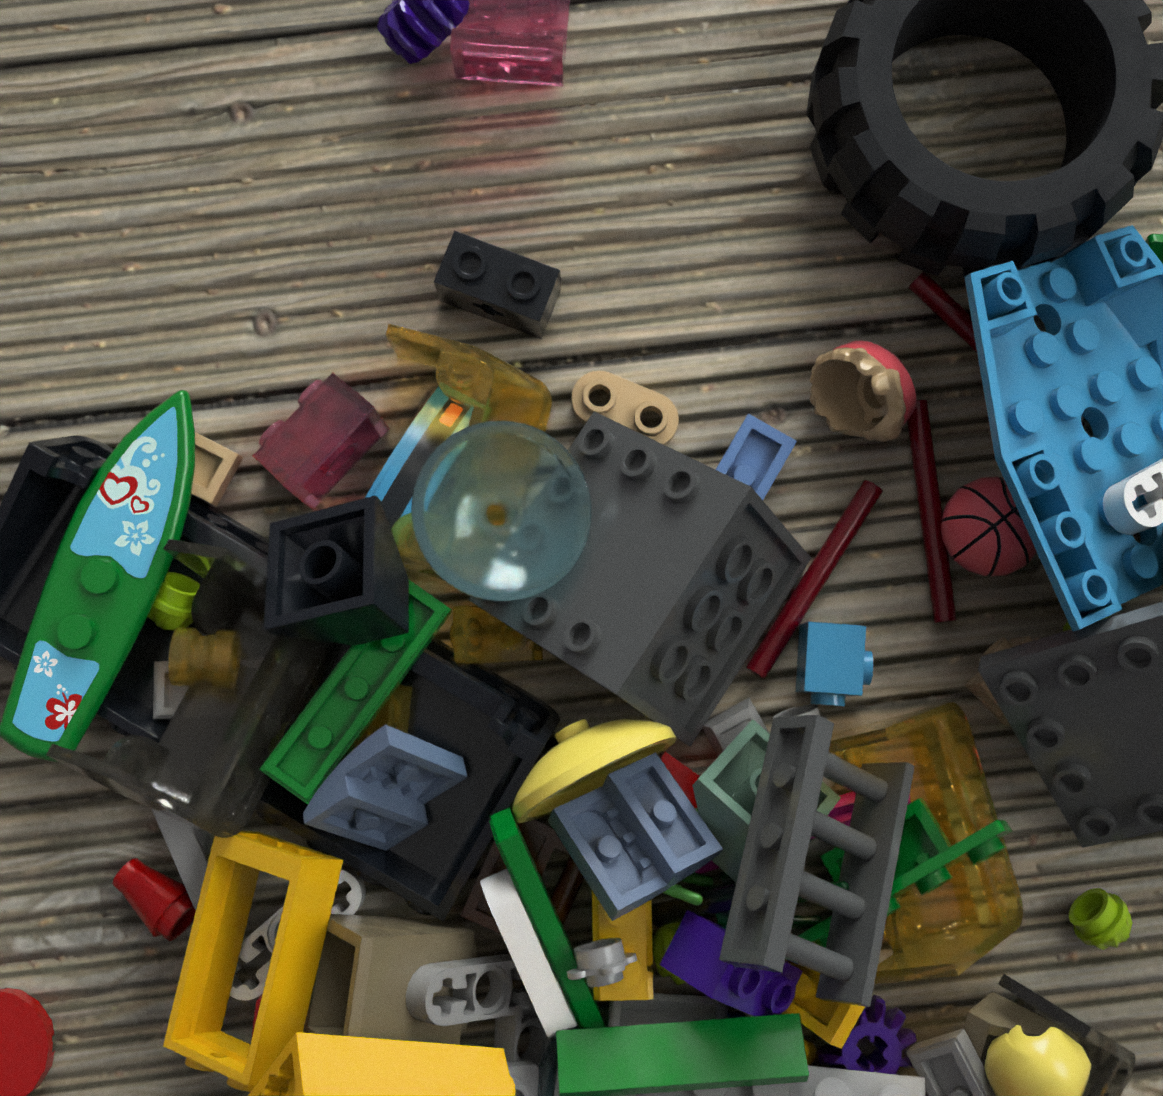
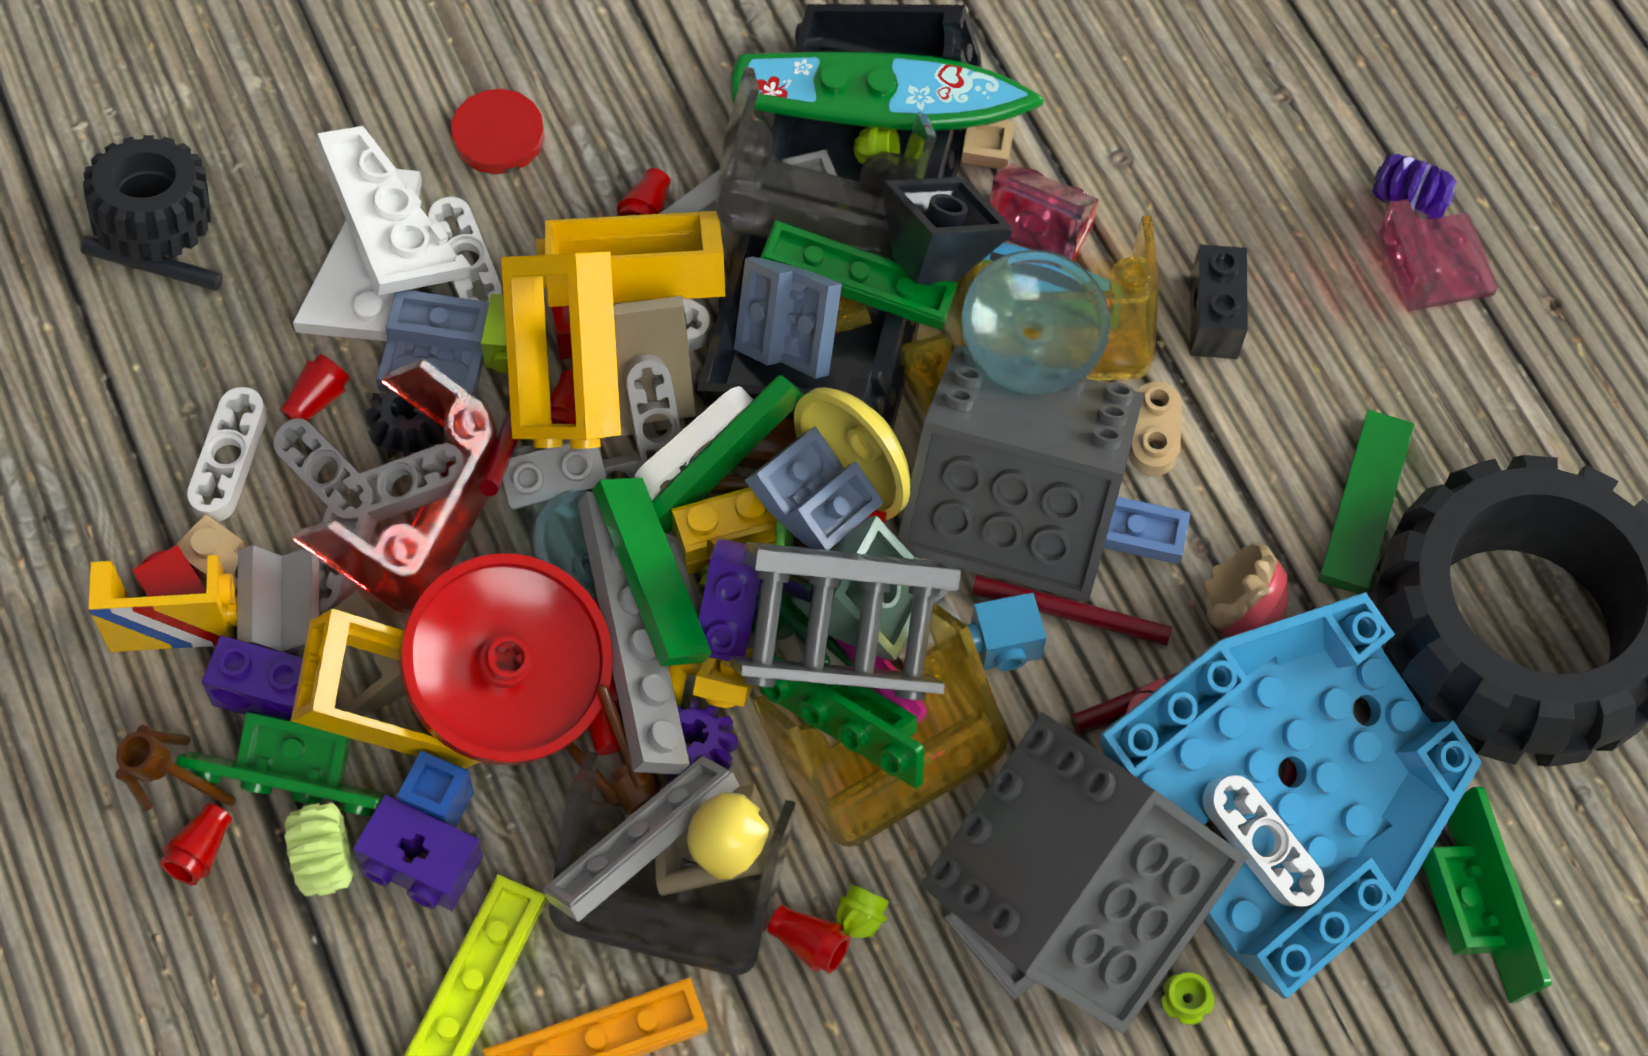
camera: 70 degrees right, 20 degrees down
(204, 658) = (846, 174): clear yellow wheel -> none
(601, 962) = (708, 488): light grey plate -> none
(777, 220) = (1366, 503): none -> green tile
(1115, 985) = (810, 938): none -> red cone

